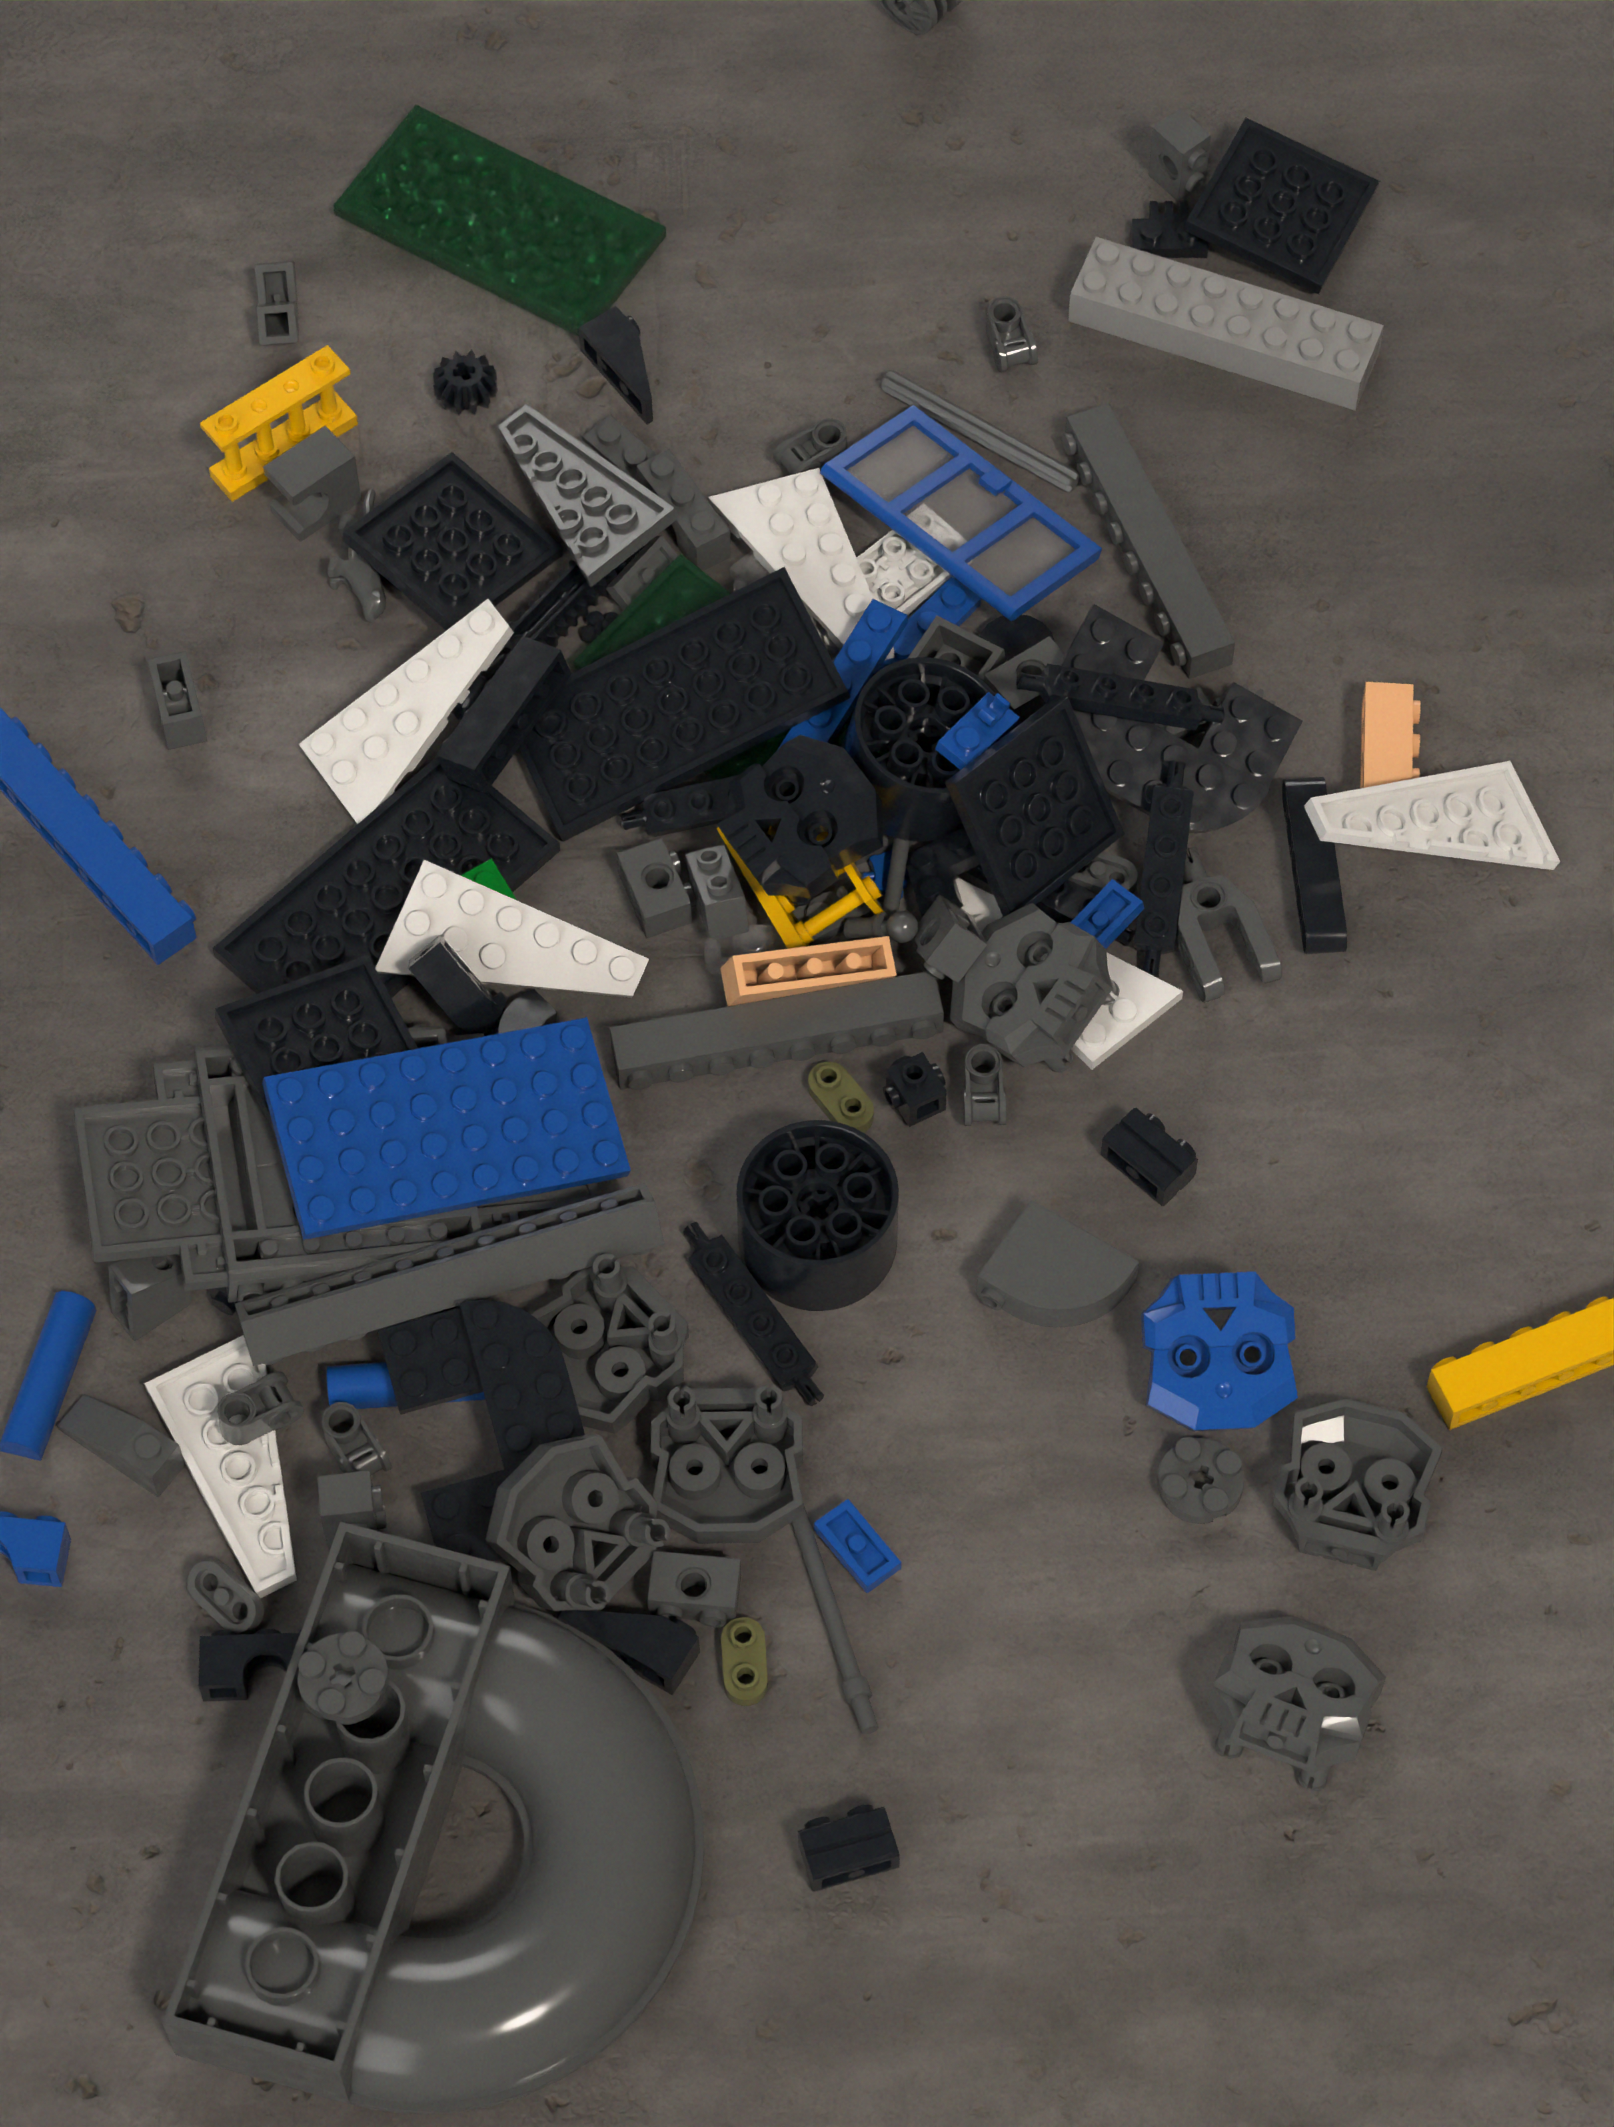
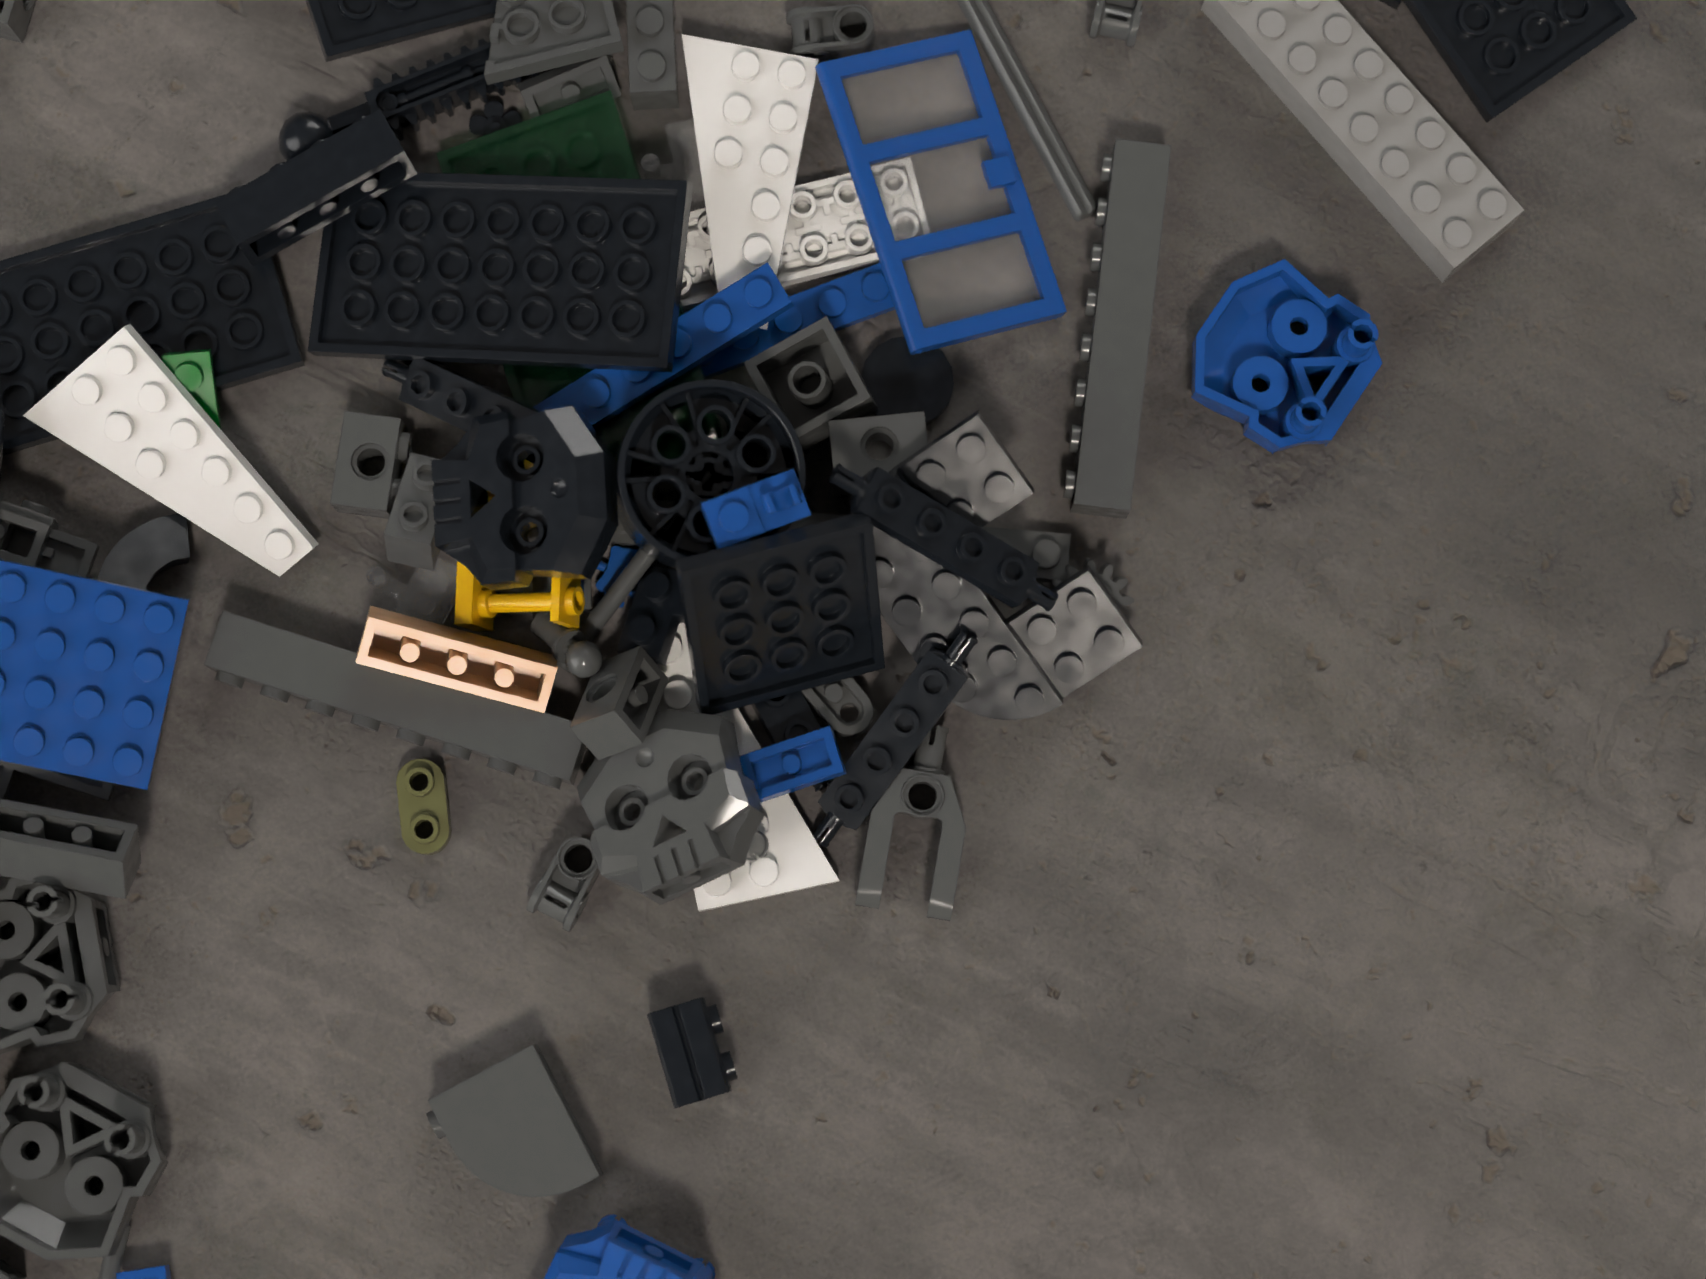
camera: 25 degrees right, 20 degrees up
(396, 721) = (214, 128): white wing -> none
(457, 989) = (88, 480): black piece -> none
(753, 1313) = (196, 1001): black plate -> none
(805, 1160) = (375, 962): black wheel -> none
(915, 1088) = (498, 863): black brick -> none
(1304, 505) = (1253, 339): none -> blue brick
(1313, 871) = (1062, 810): black beam -> none
(1388, 734) = (1212, 731): light nougat brick -> none
(1453, 814) = (1239, 843): white wing -> none

